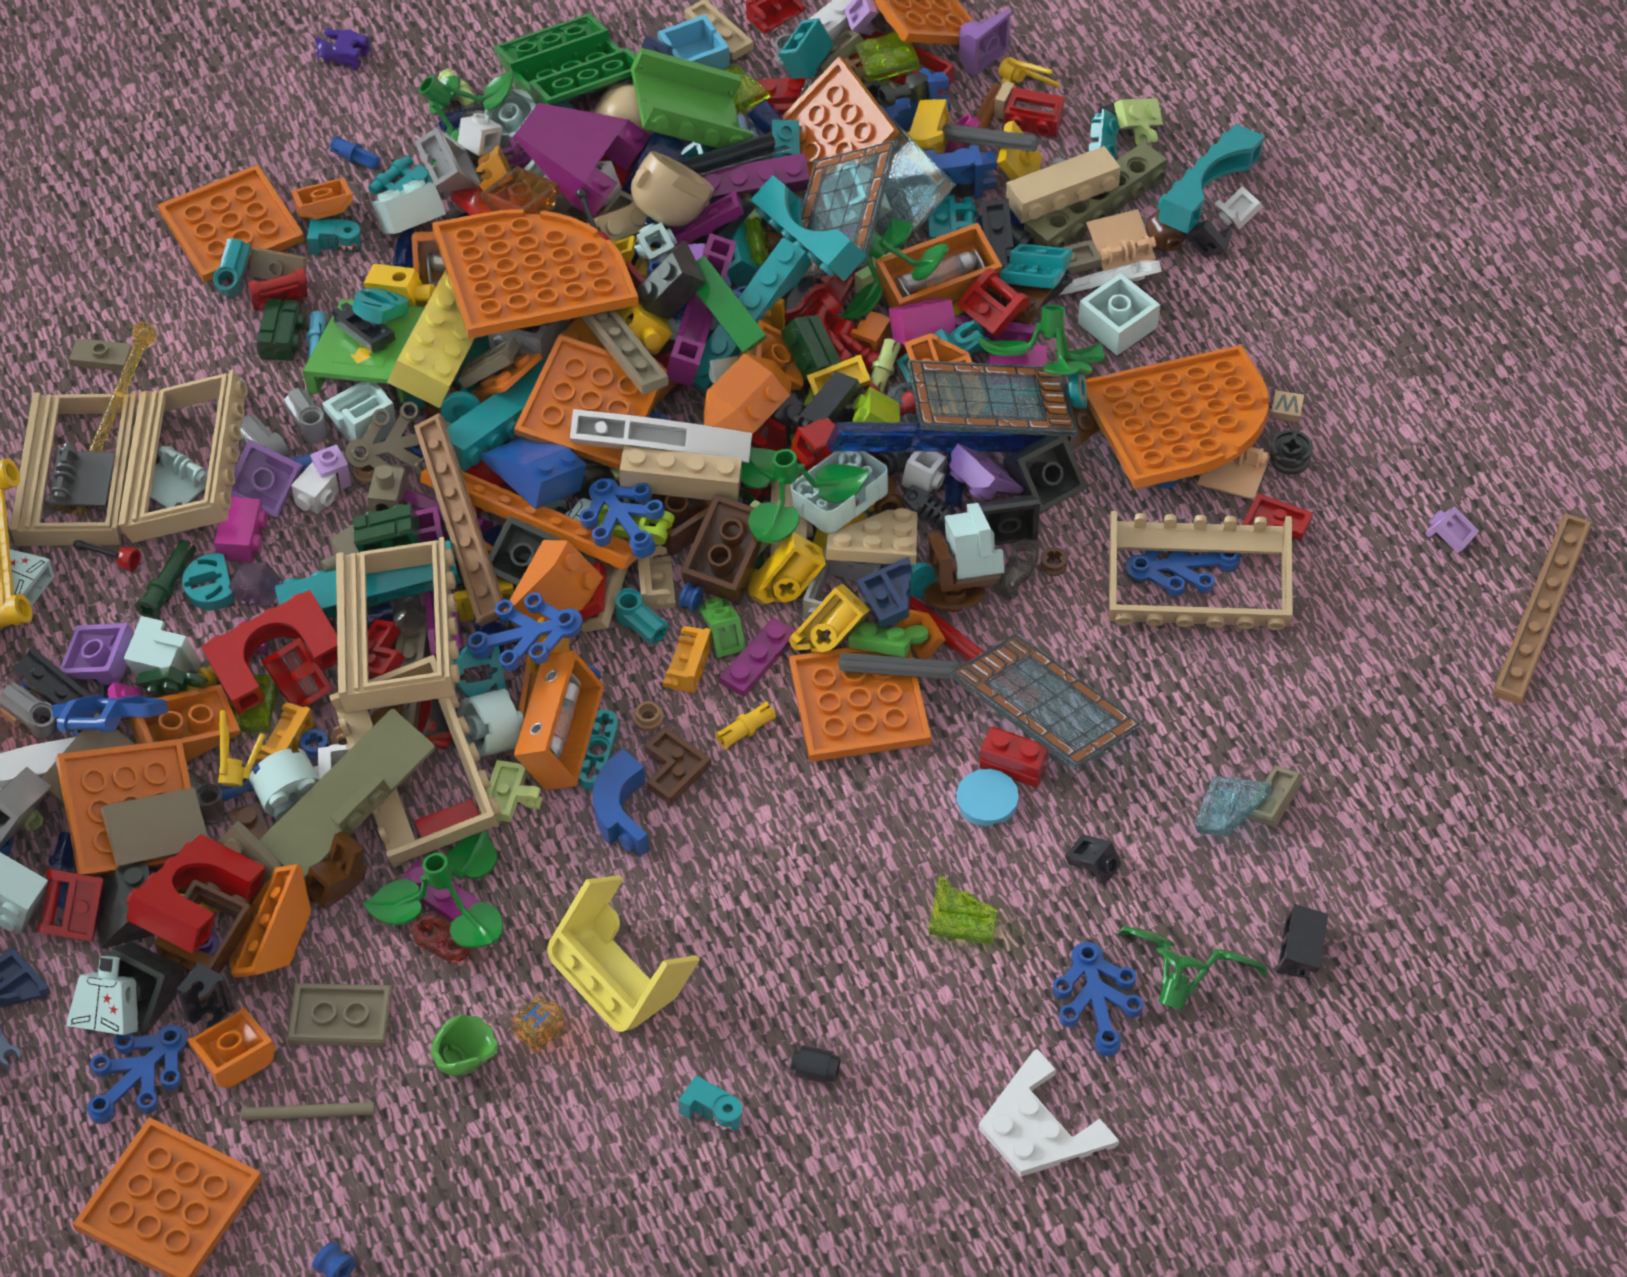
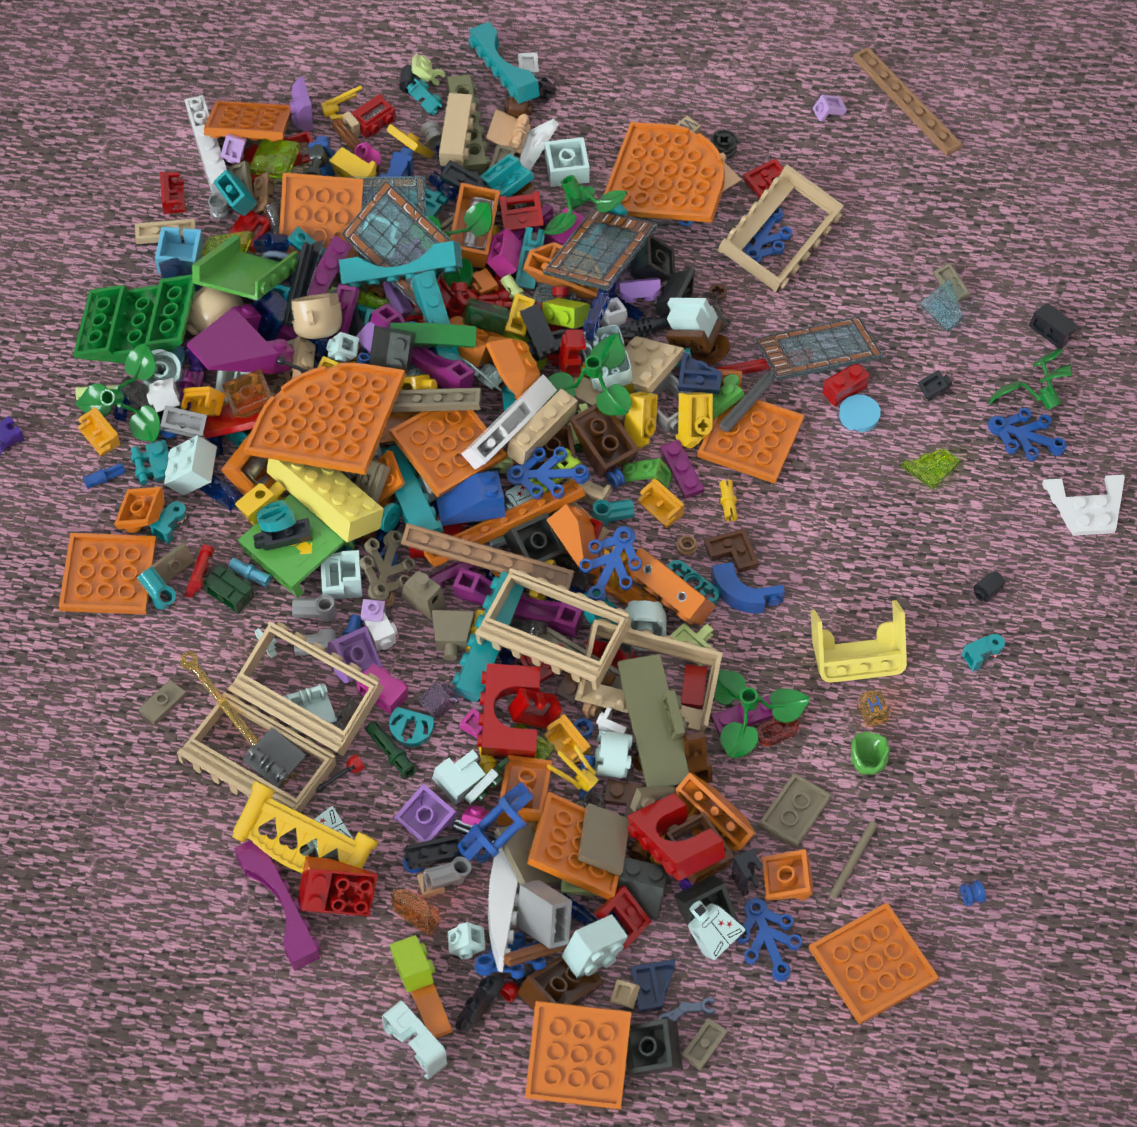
camera: 60 degrees left, 5 degrees up
(386, 528) = (464, 602): dark green brick -> none
(408, 120) = (98, 432): none -> light orange hinge
(990, 137) = (396, 141): dark grey axle -> none

